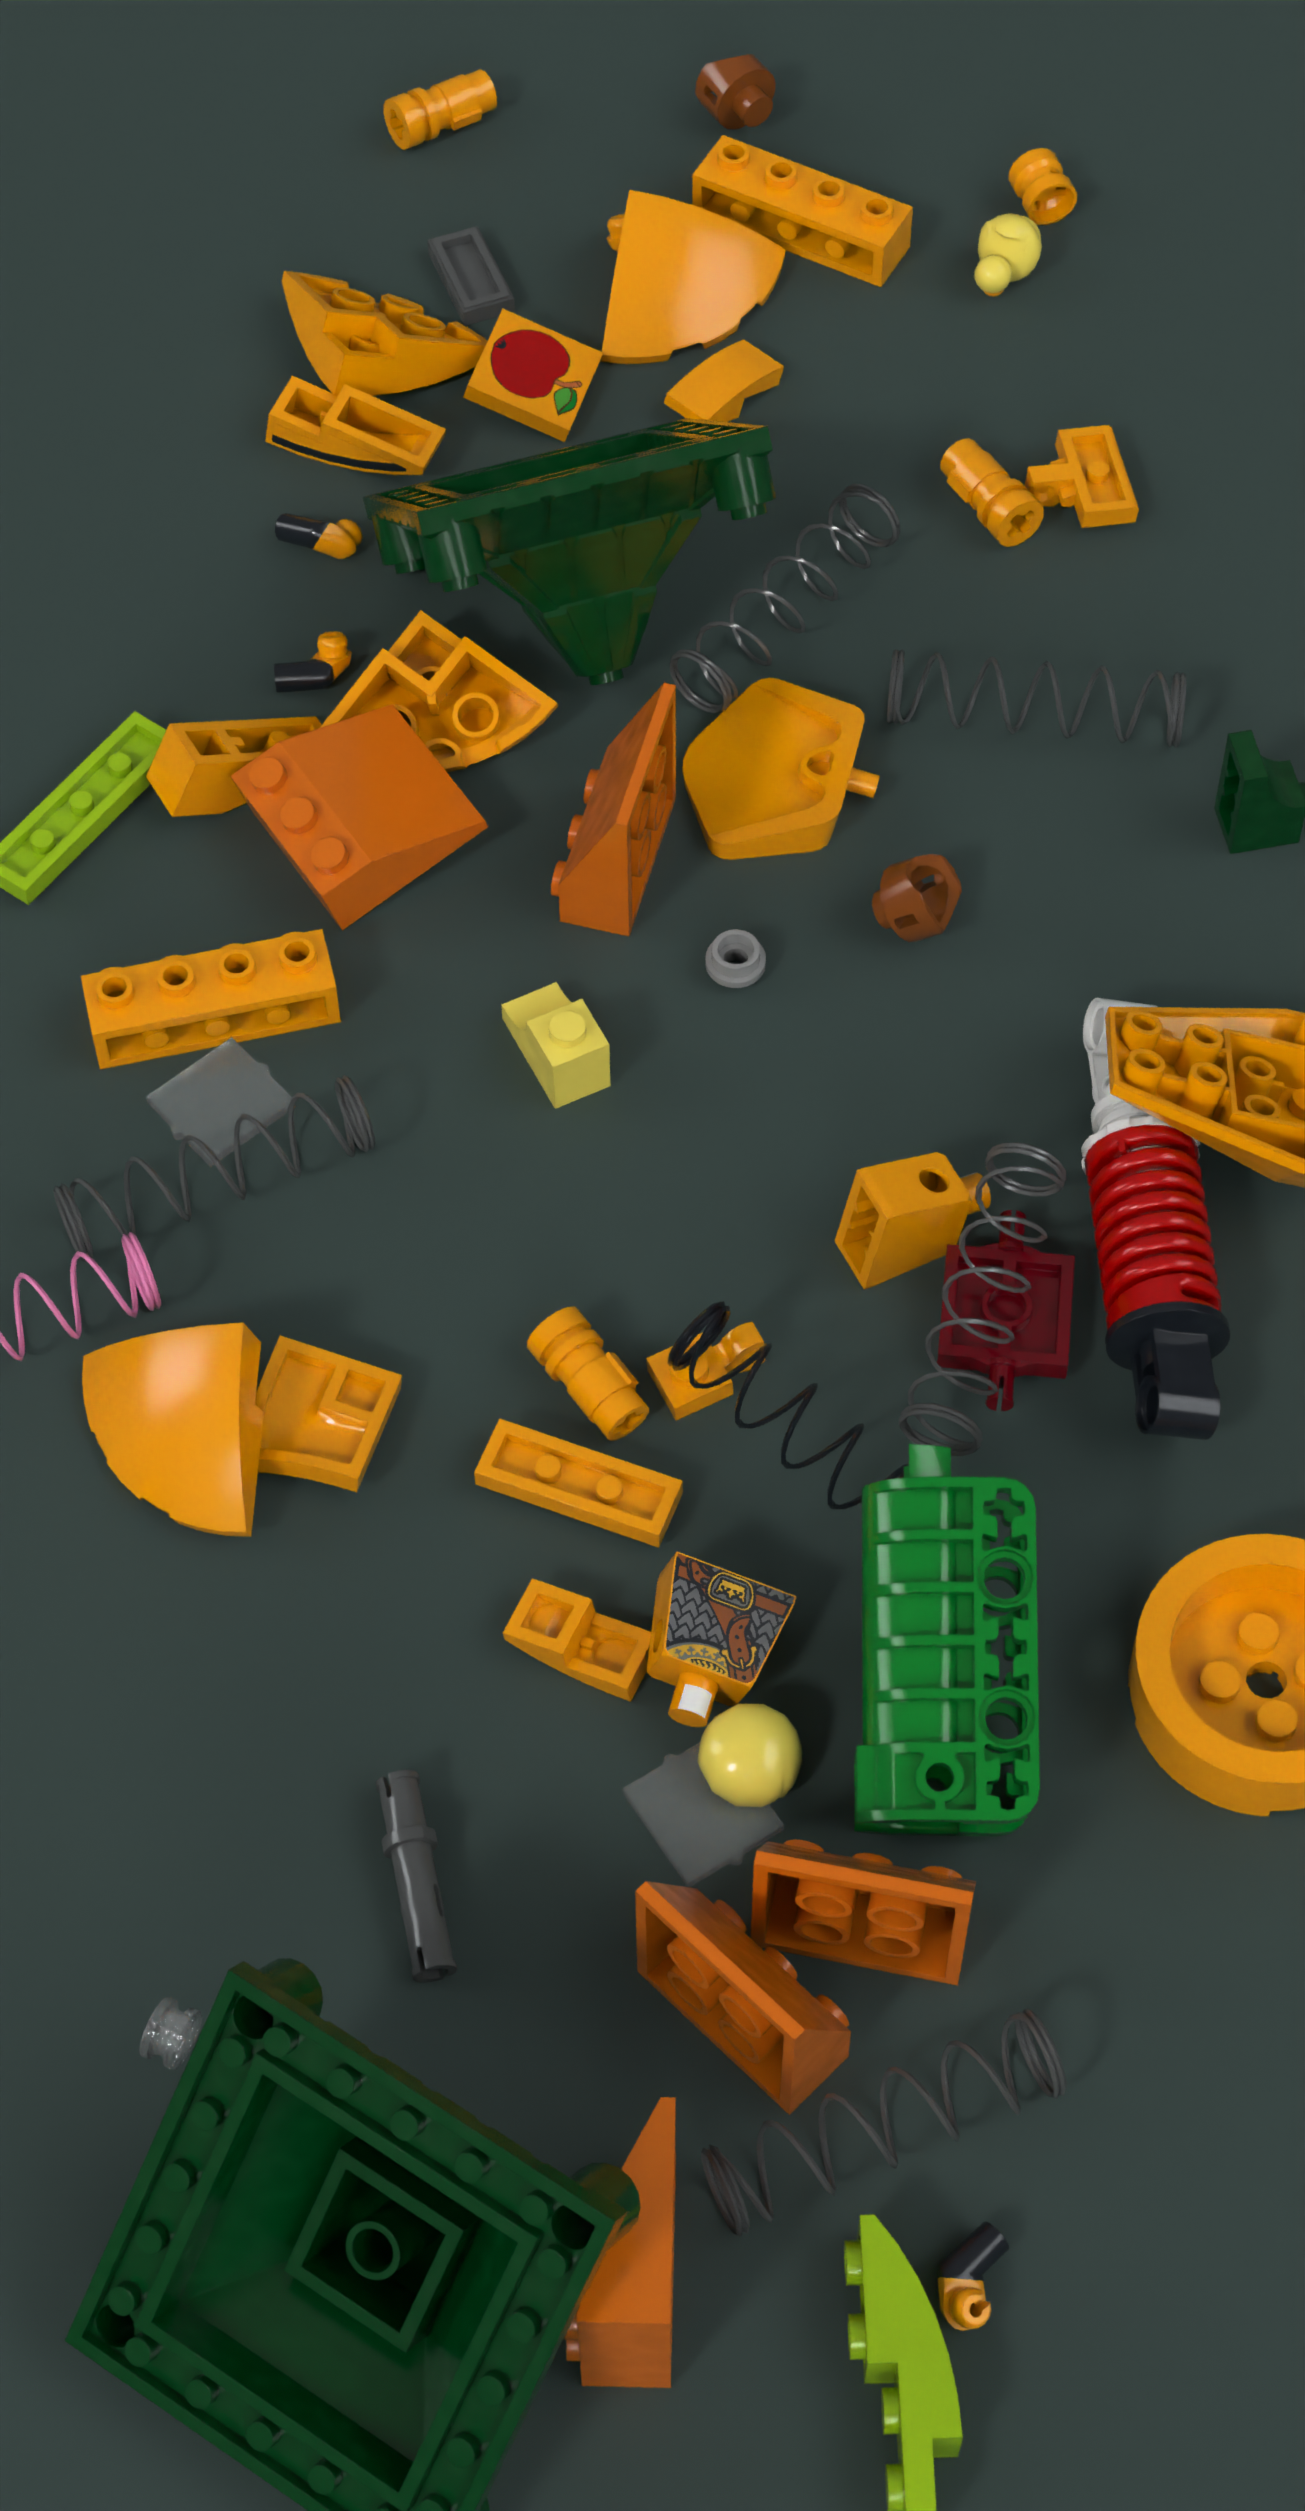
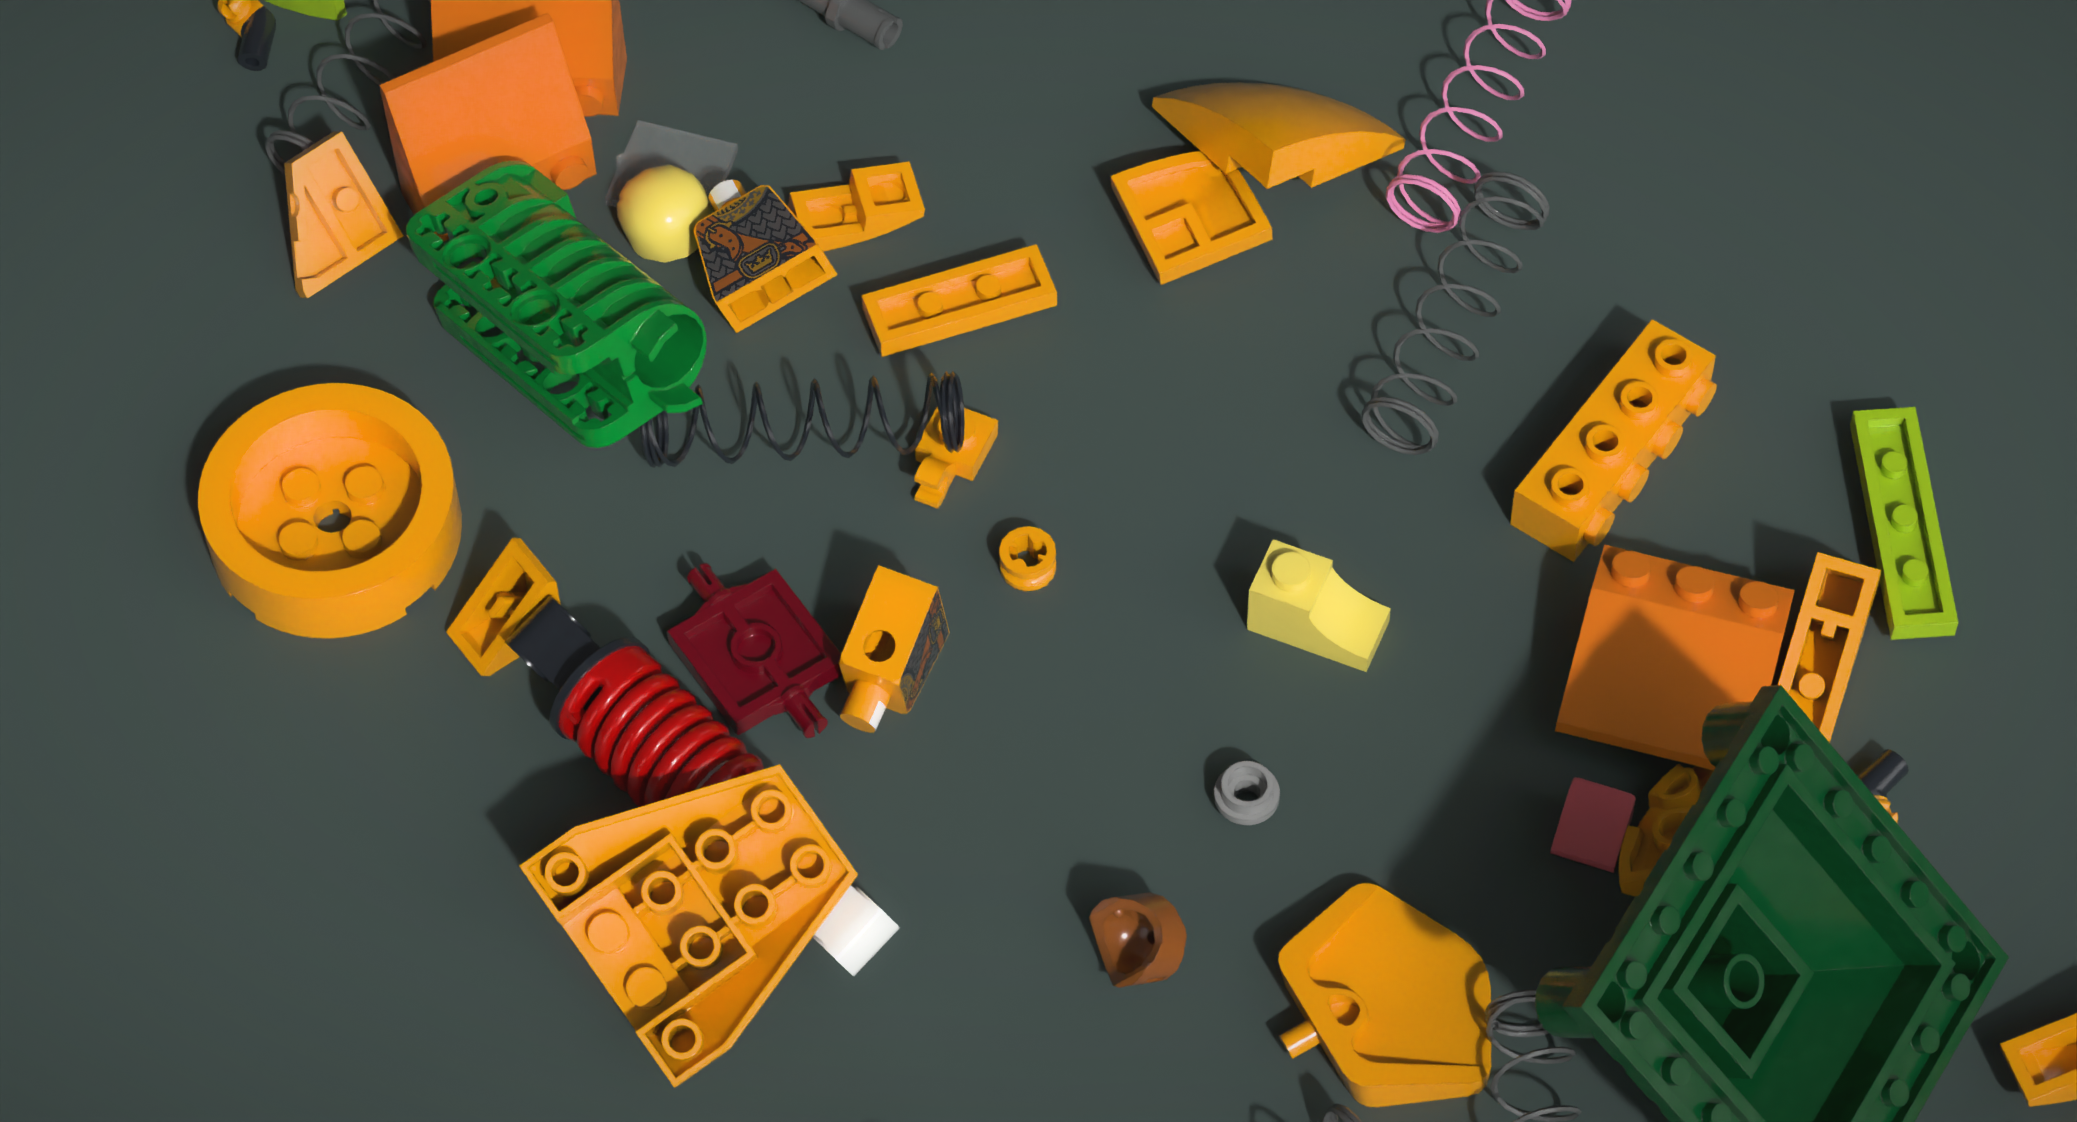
camera: 140 degrees right, 0 degrees up
(214, 1094) = (1524, 390): clear piece -> none
(331, 539) = (2026, 914): arm -> none
(520, 777) = (1593, 824): none -> coral slope
(593, 1378) = (1028, 375): light orange axle -> none
(622, 823) = (1439, 800): orange slope -> none
(720, 1222) = (1039, 546): none -> light orange bush
(960, 1447) = (809, 697): dark grey piece -> none
(1058, 1961) = (333, 214): none -> light orange wing
(1183, 1479) = (500, 605): none -> light orange slope

